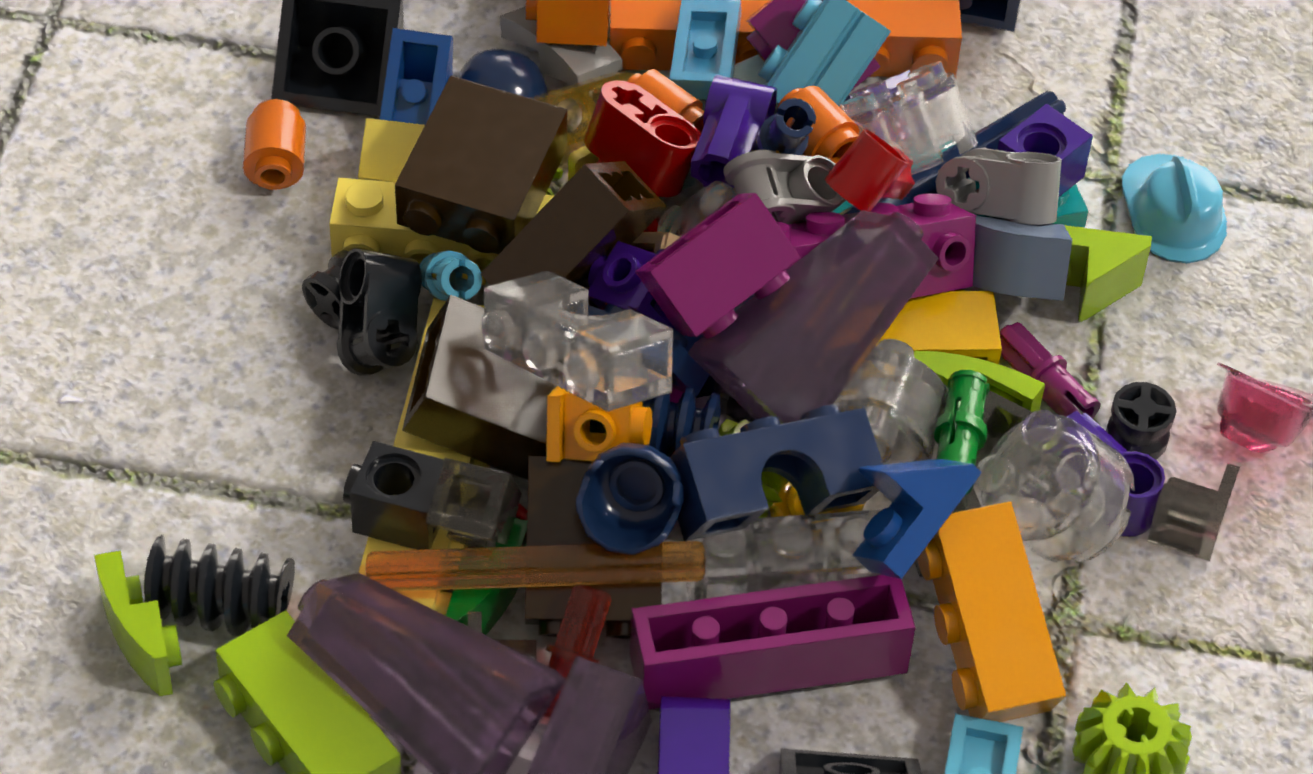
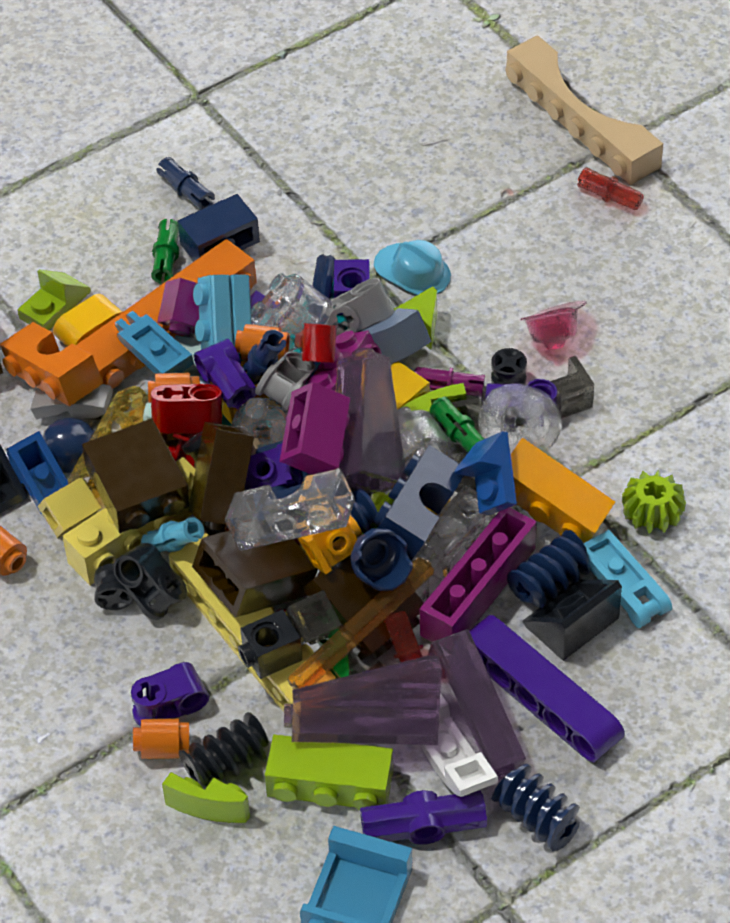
camera: 40 degrees left, 0 degrees up
(177, 508) = (161, 738): none -> orange brick
(252, 469) = (172, 693): none -> dark purple piece
(881, 713) = (550, 570): none -> dark blue piece

